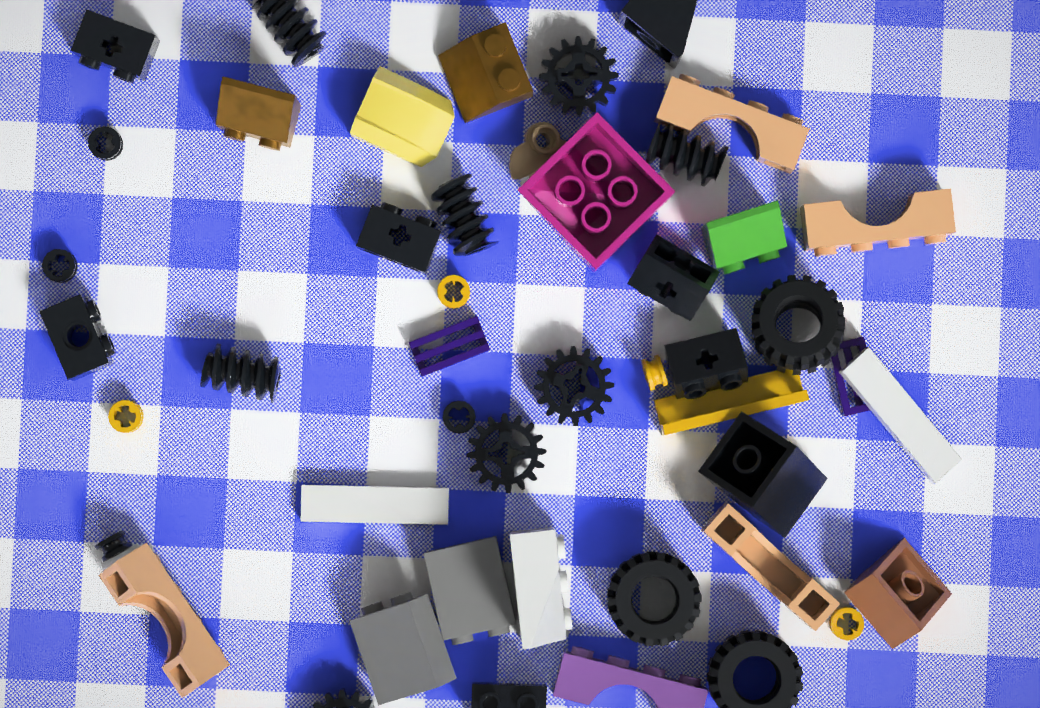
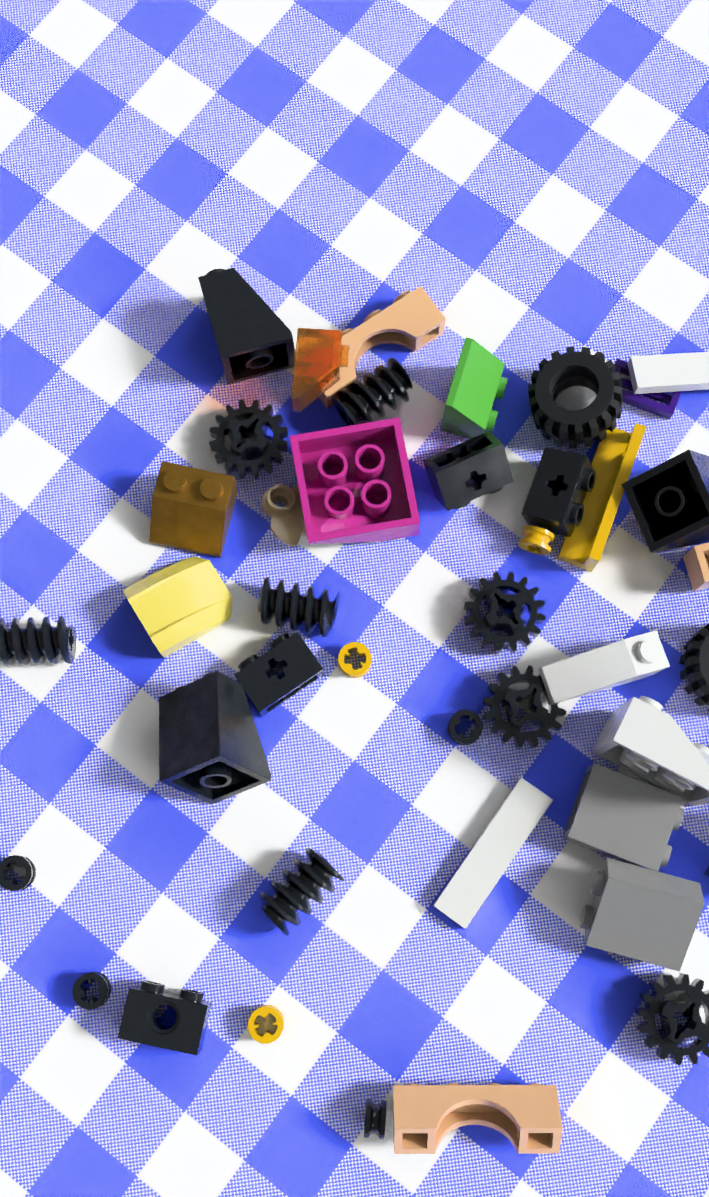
camera: 50 degrees left, 10 degrees down
(257, 113) = (85, 719): pearl gold slope -> none
(307, 222) = (210, 740): none -> black slope
(420, 357) = (405, 664): dark purple tile -> none
(579, 495) = (604, 667): none -> white slope
(673, 91) = (316, 364): none -> clear orange slope
(830, 226) = (510, 321): light nougat arch -> none

